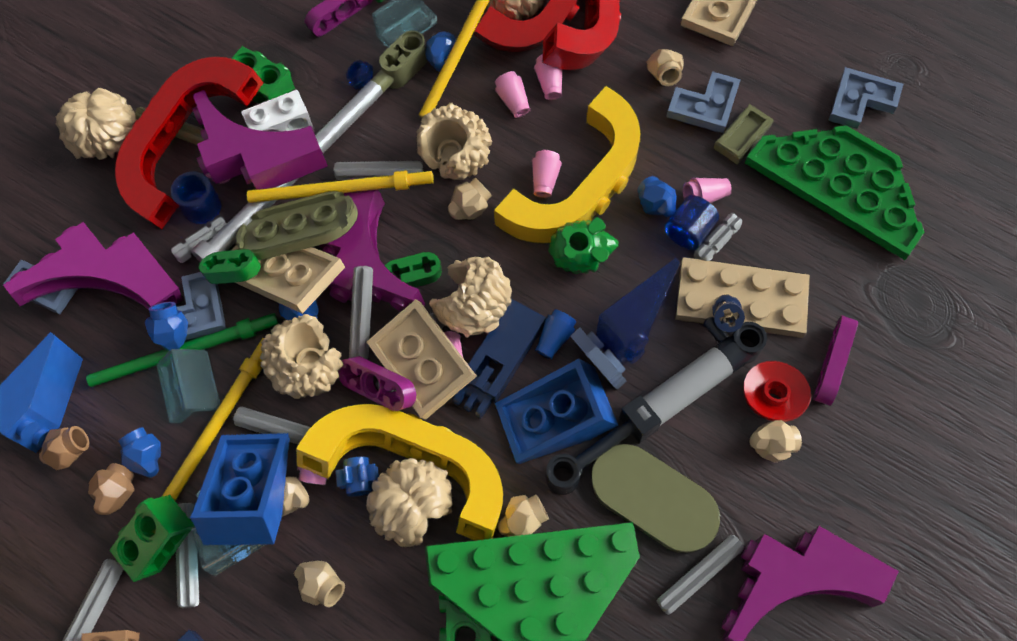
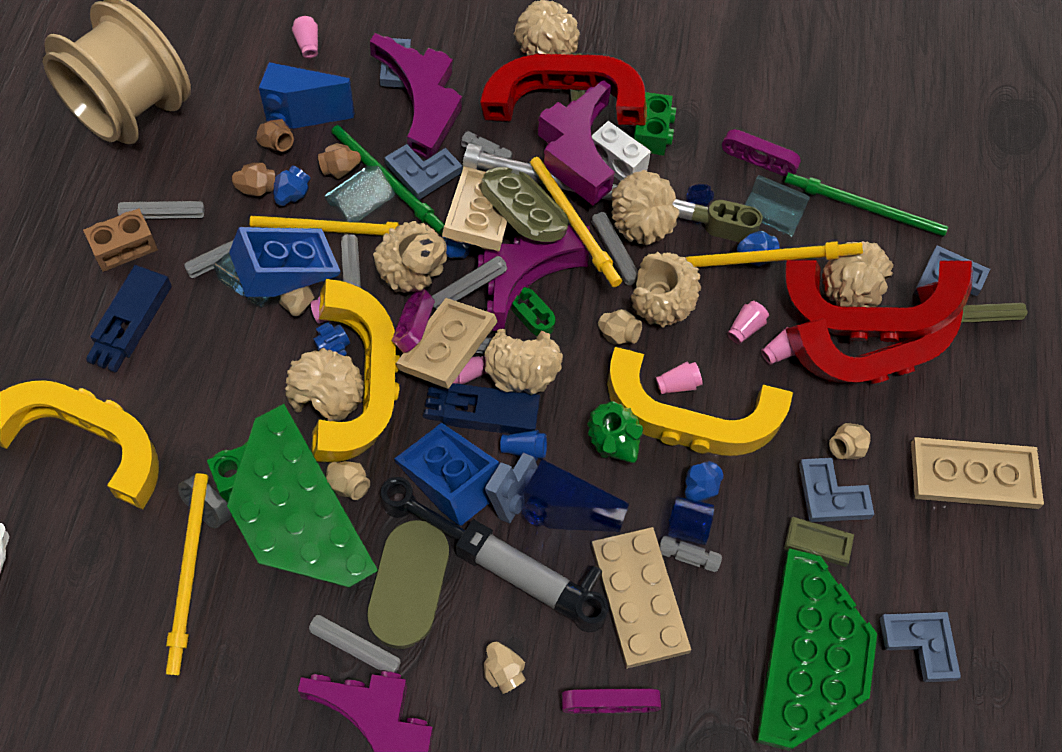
camera: 60 degrees right, 5 degrees down
(135, 389) = (338, 160): none -> medium nougat rock
(151, 537) = (221, 217): green brick -> none
(167, 325) = (395, 153): blue rock -> none
(196, 197) = (519, 127): clear blue piece -> none
(229, 266) = (465, 173): green beam -> none
(314, 337) = (424, 253): none -> tan rock
(319, 583) = (234, 349): tan rock -> none
(357, 120) = (644, 207): none -> tan hair
(707, 188) = (734, 525): bright pink cone -> none
(720, 318) = (601, 578): dark blue bush -> none
(777, 379) = (562, 642): red dish -> none

